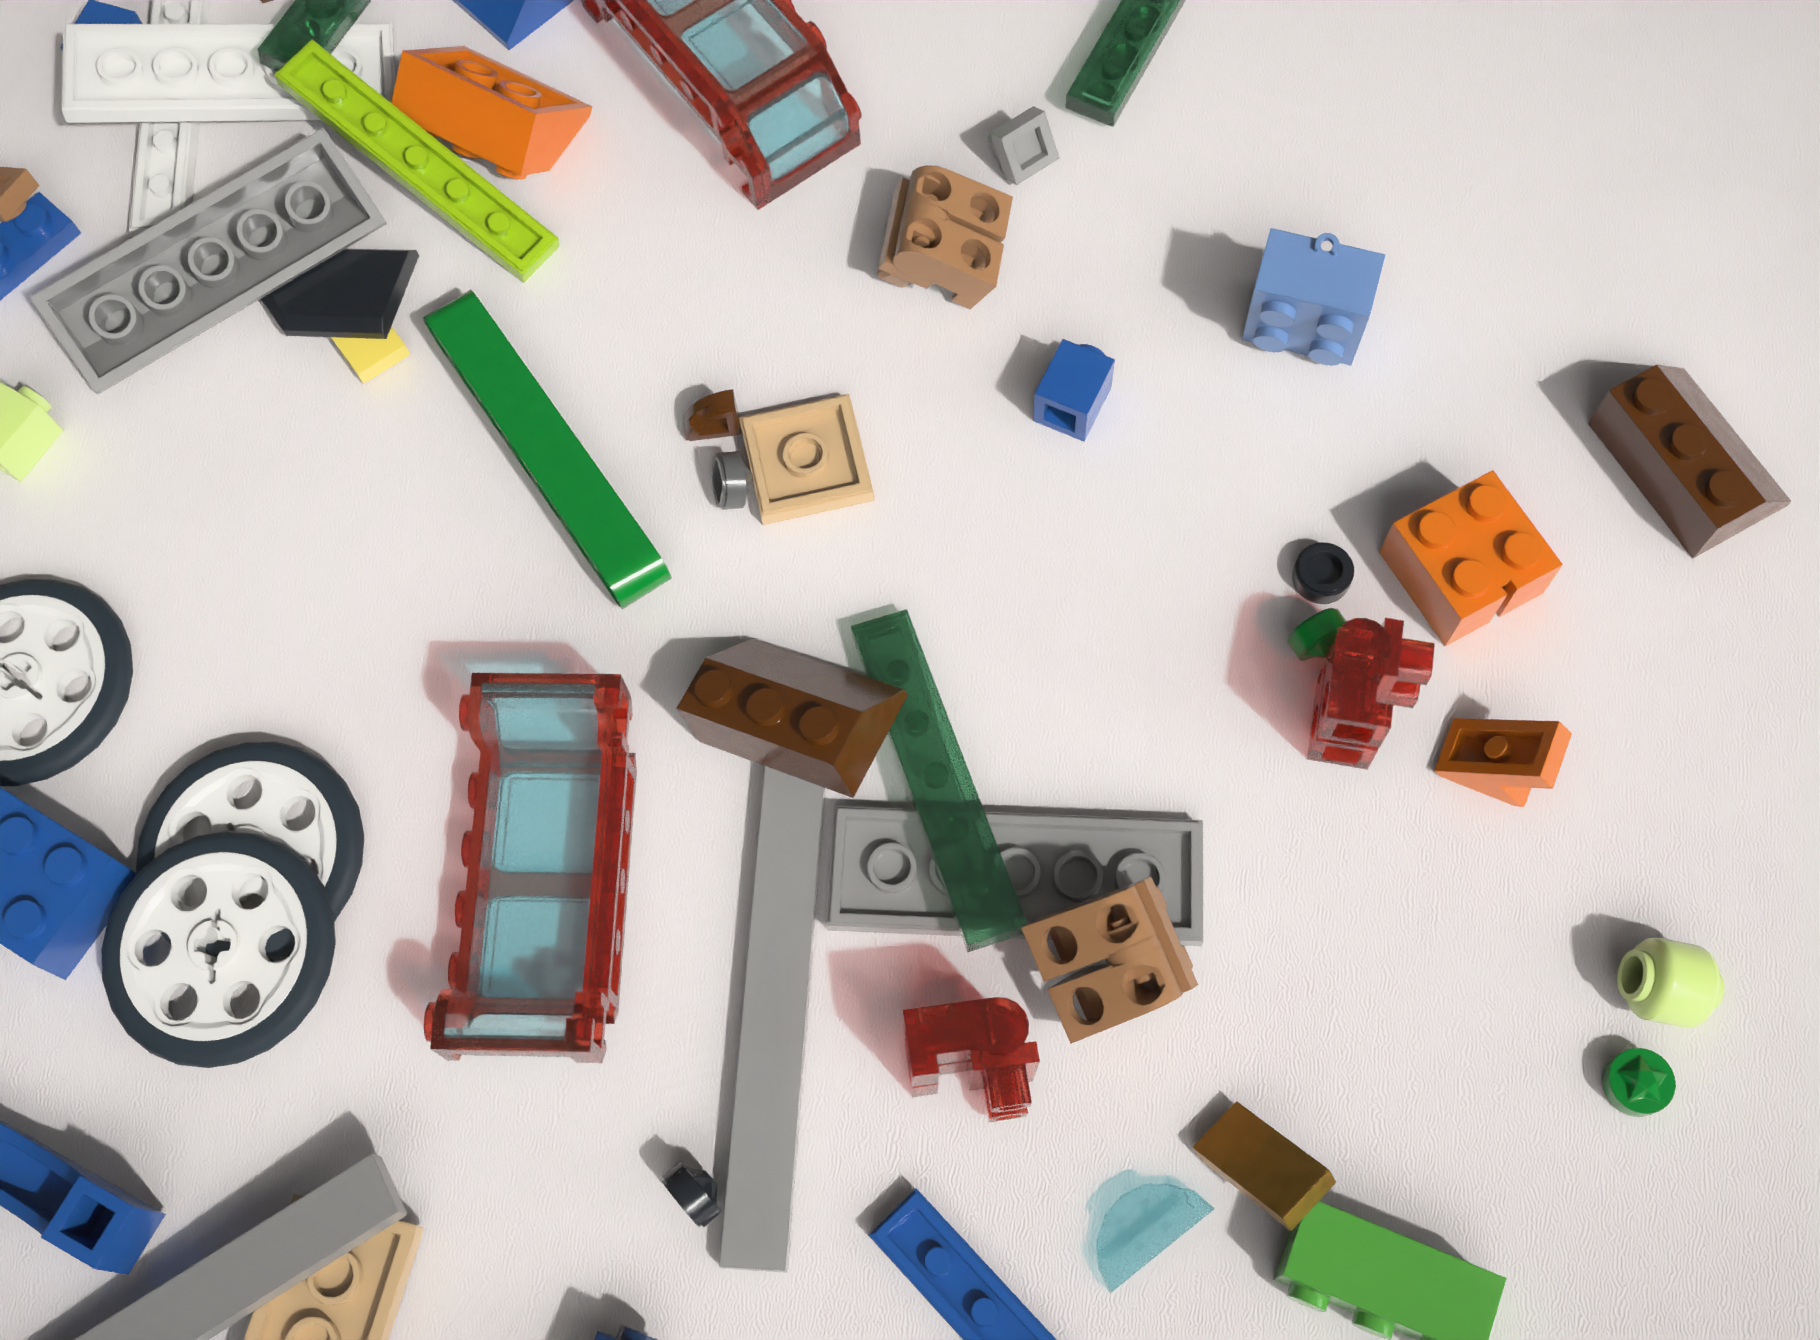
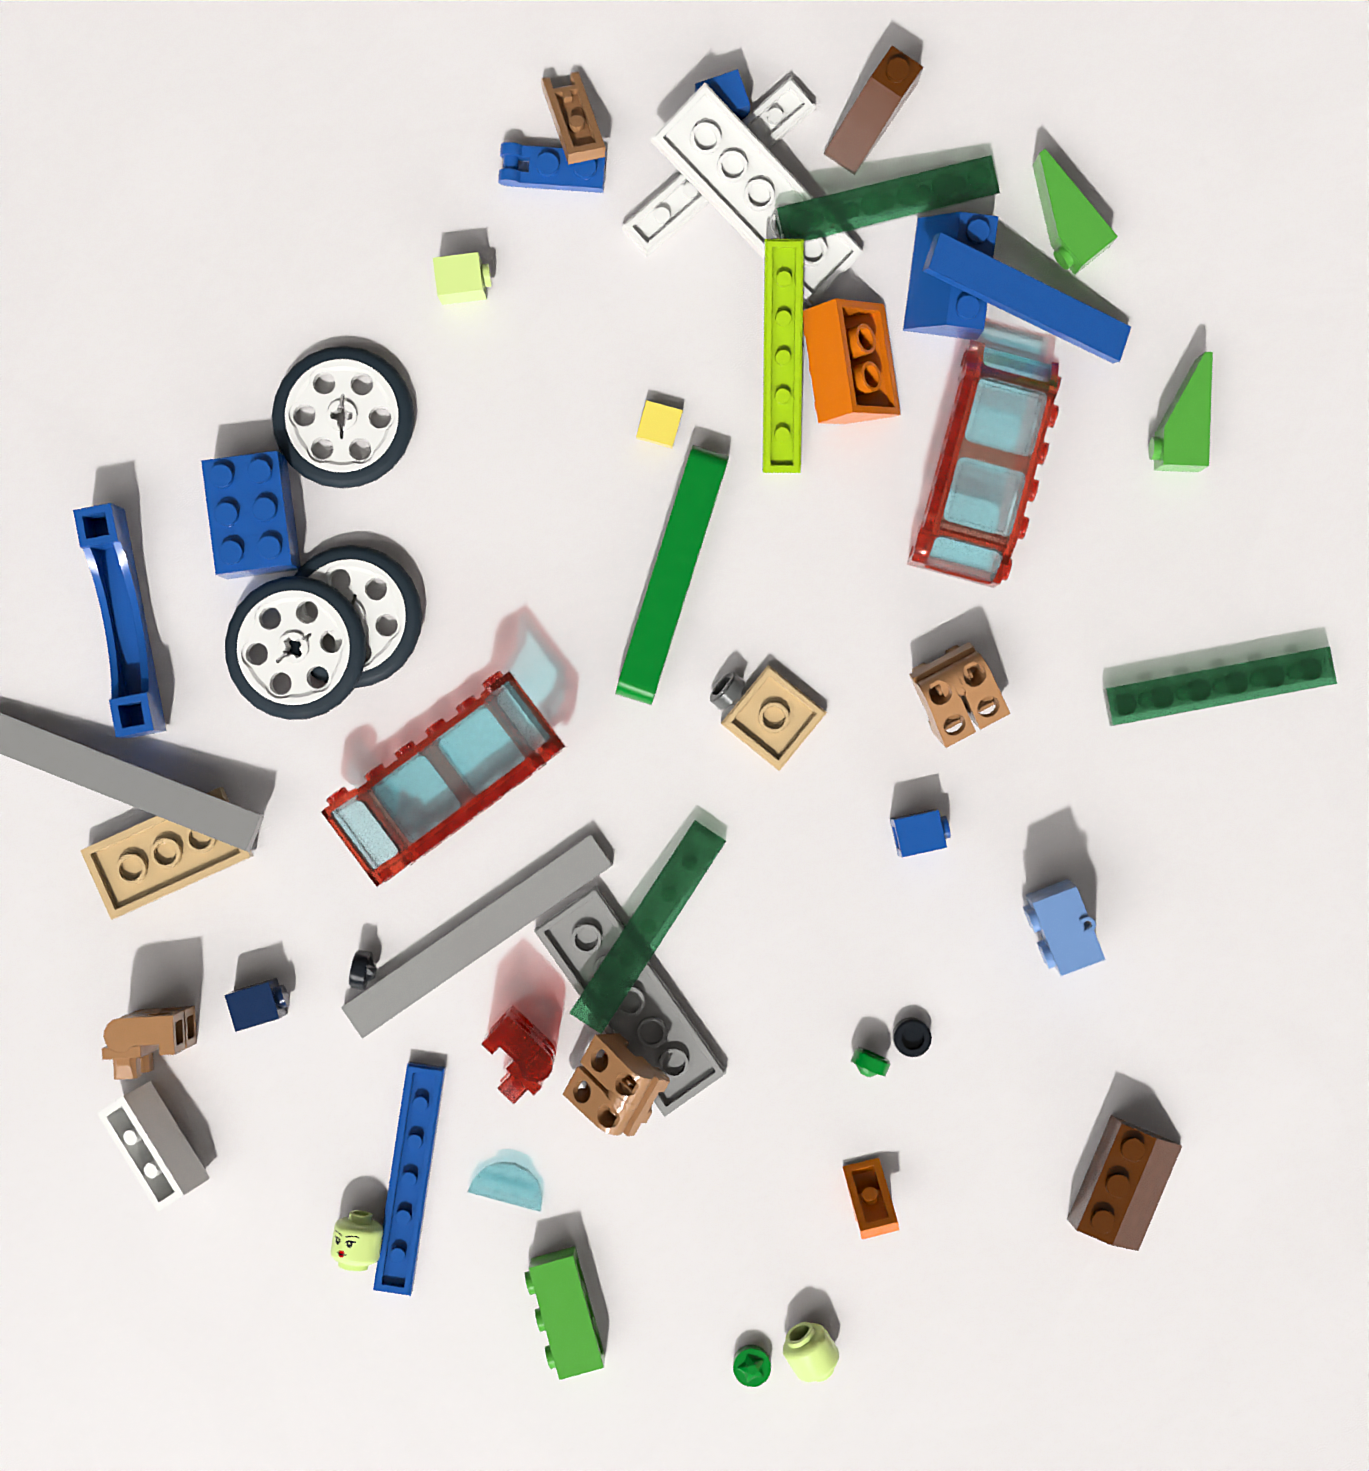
camera: 45 degrees right, 20 degrees up
(208, 261) = (634, 300): light grey slope -> none
(345, 295) = (675, 380): black tile -> none
(713, 417) = (755, 650): reddish brown tile -> none
(791, 713) = (625, 831): reddish brown slope -> none
(1024, 145) = (1055, 688): light grey tile -> none
(1264, 1165) = (574, 1223): pearl gold tile -> none
(1359, 684) = (850, 1099): clear red hips -> none
(1462, 554) = (971, 1110): orange piece -> none

